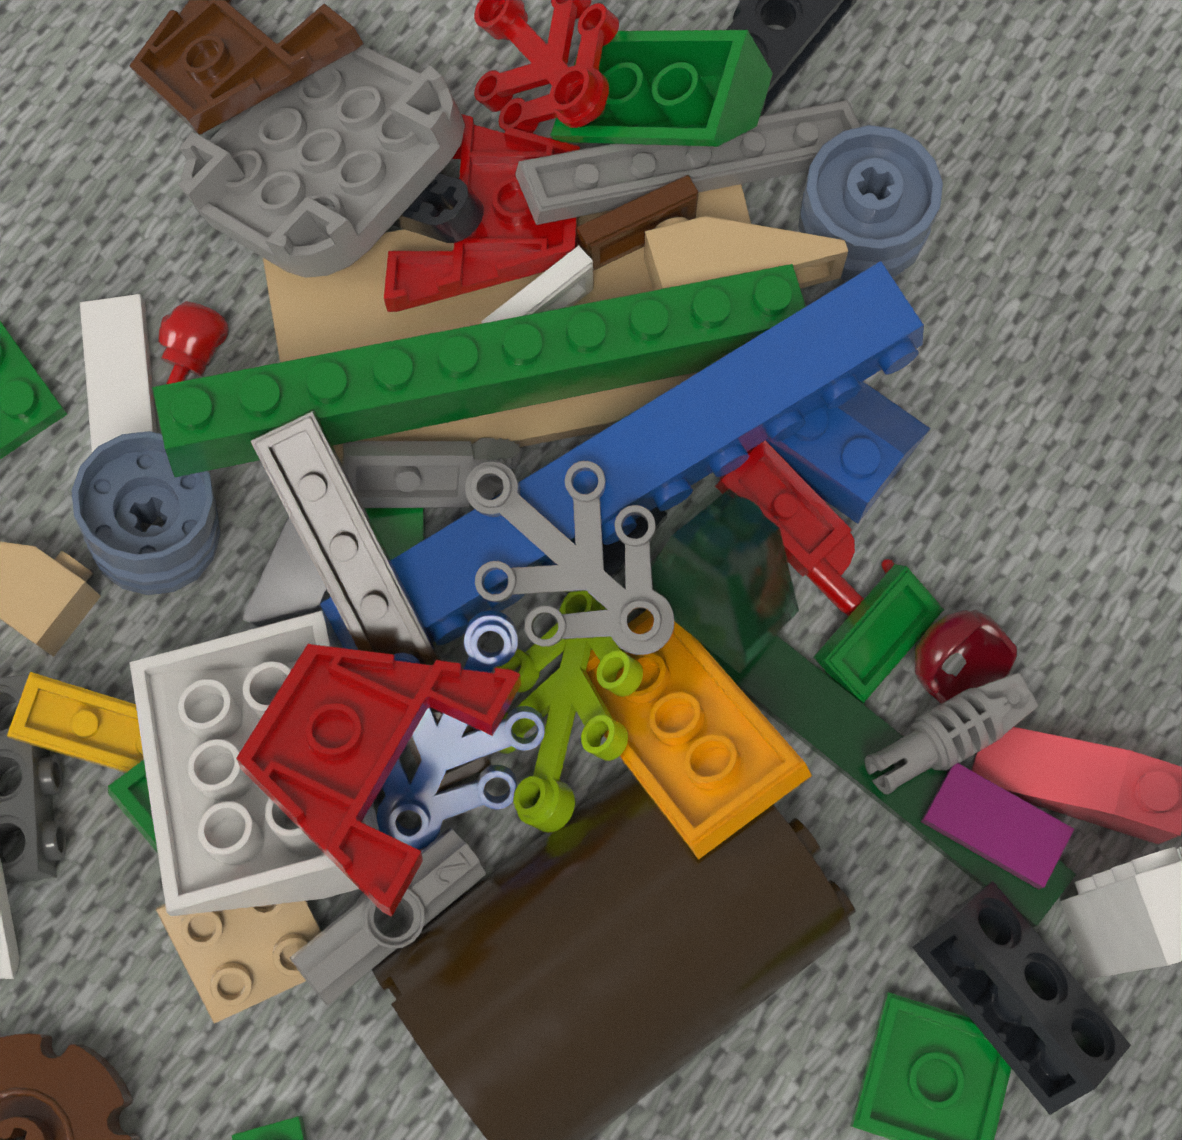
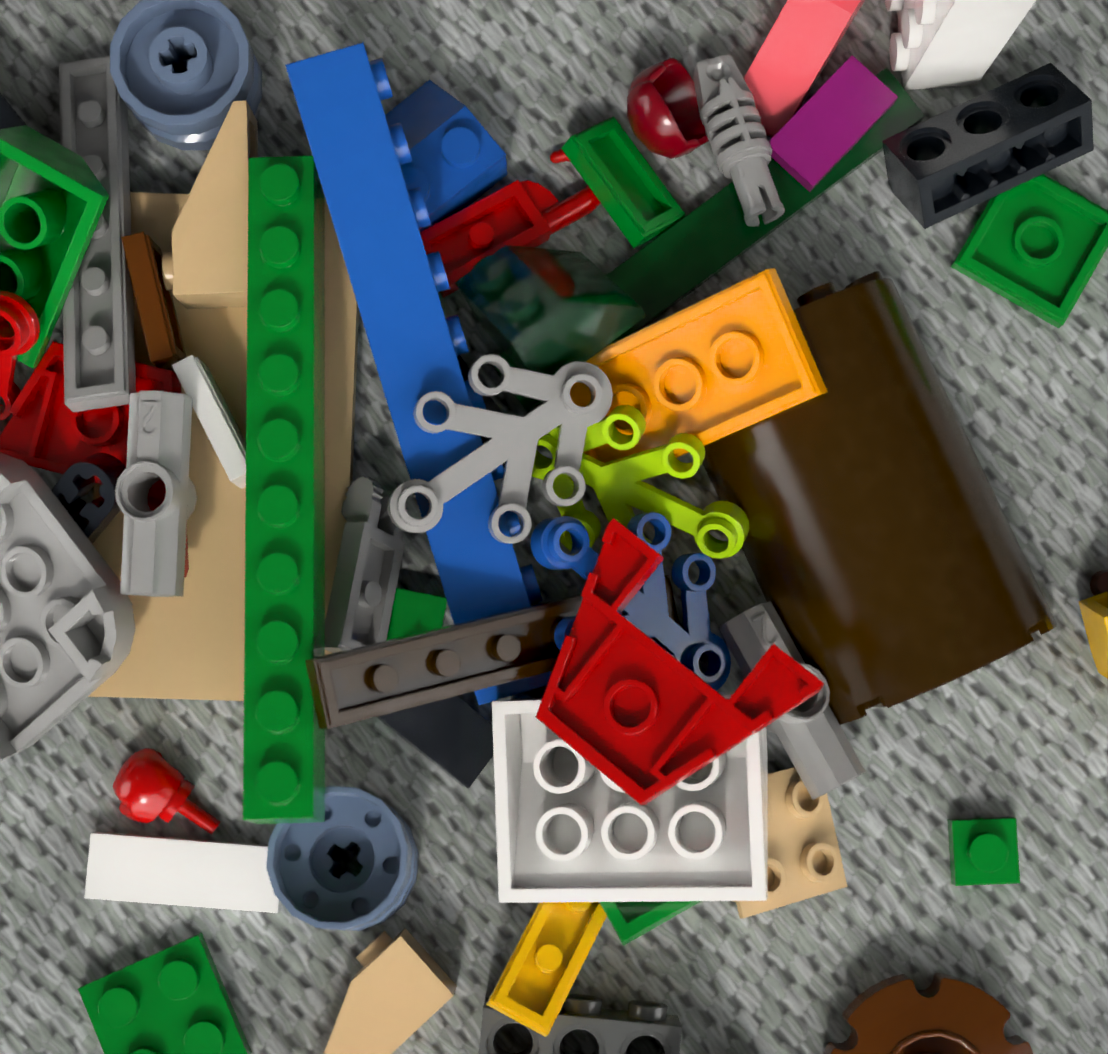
camera: 80 degrees left, 10 degrees up
(482, 251) = (155, 451): none -> light grey piece

